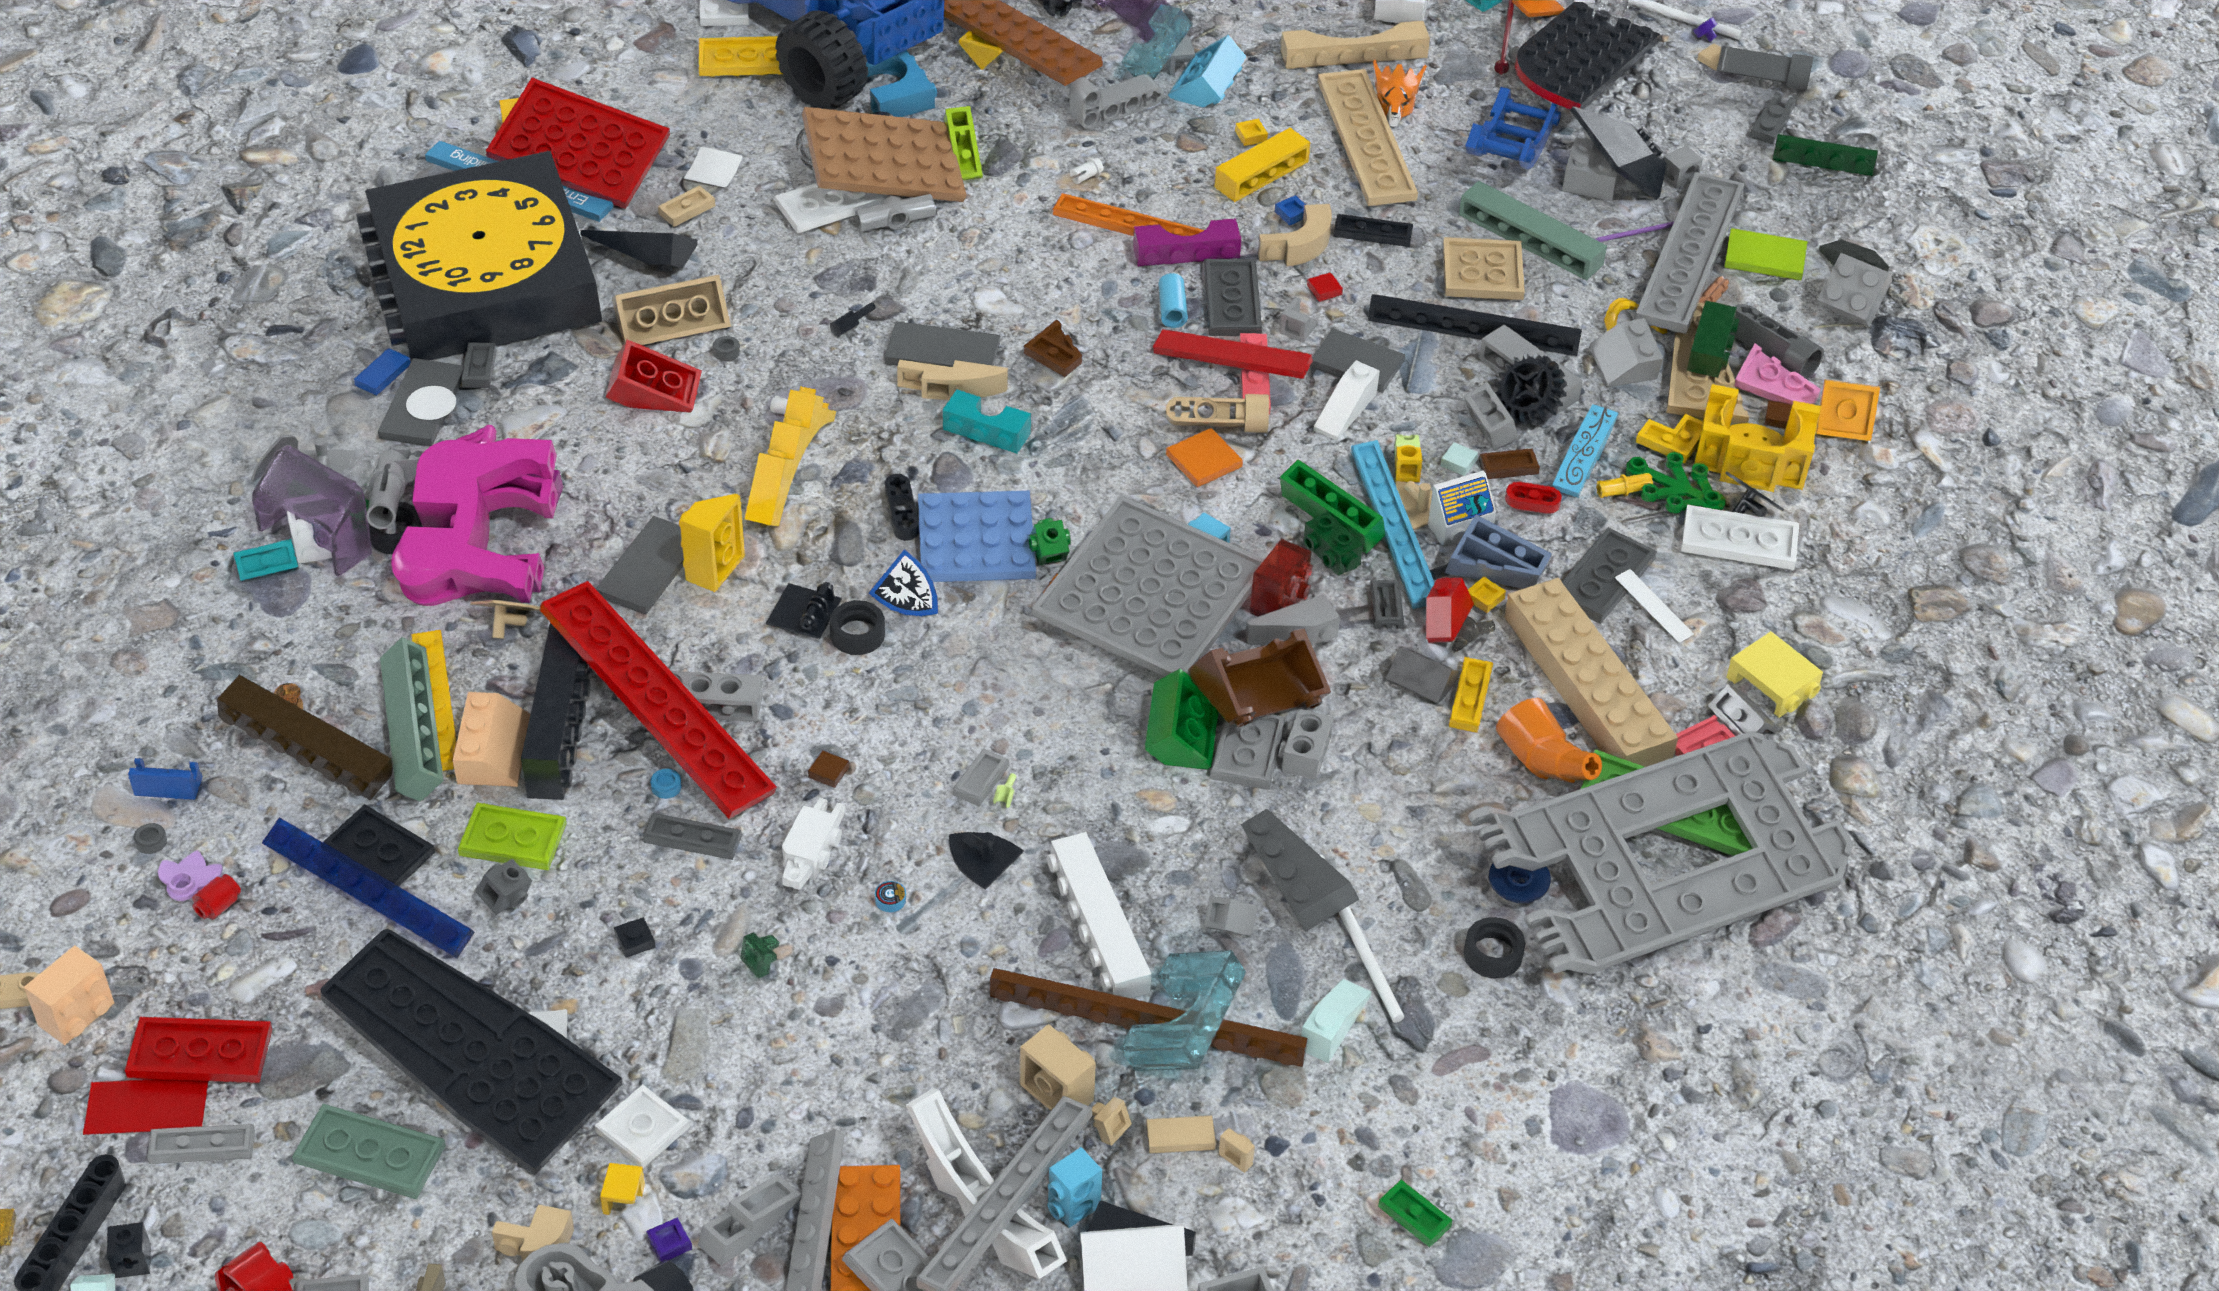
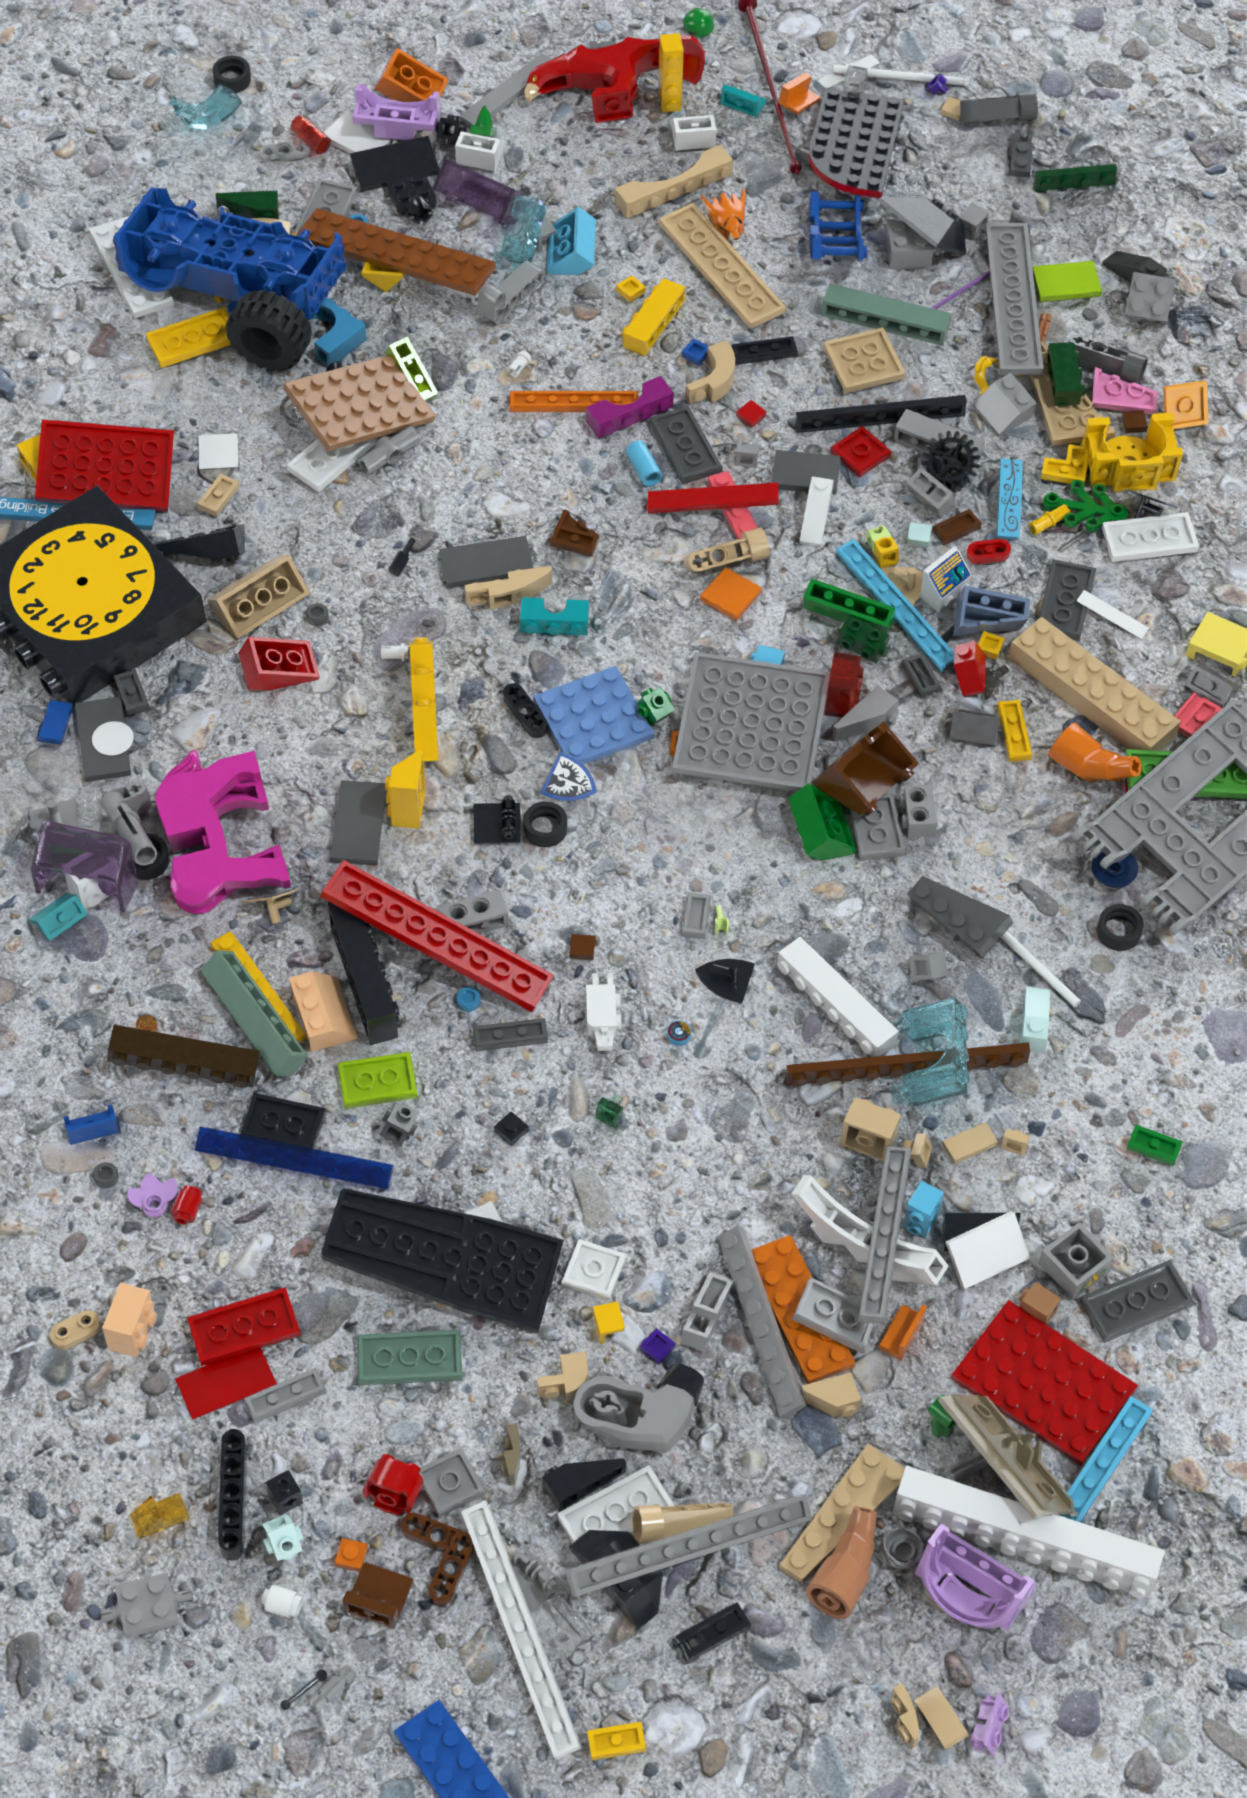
camera: 20 degrees left, 10 degrees up
(1433, 358) = (861, 451): none -> red tile

